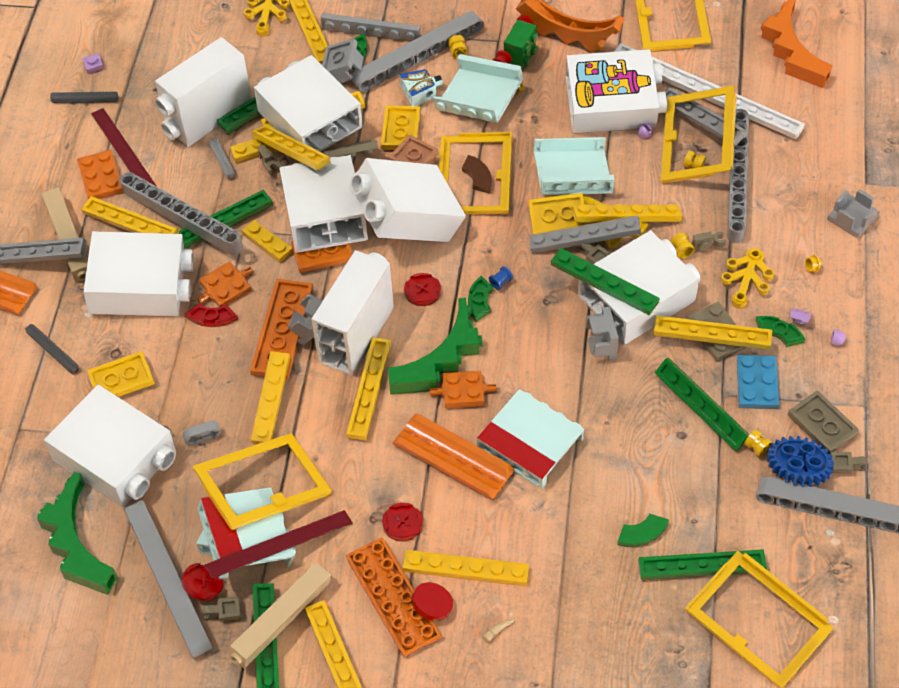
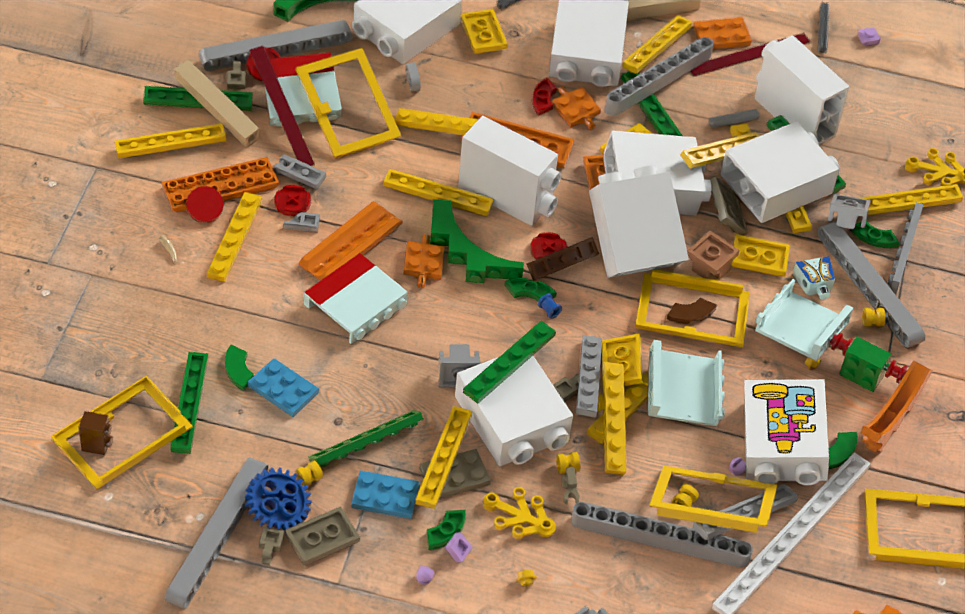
camera: 90 degrees right, 5 degrees down
(363, 519) = (299, 171): none -> light grey plate
(431, 505) = (304, 222): none -> light grey tile
(438, 273) = (562, 259): none -> reddish brown plate
(656, 486) = (283, 387): none -> dark azure plate
(777, 636) = (95, 433): none -> reddish brown brick

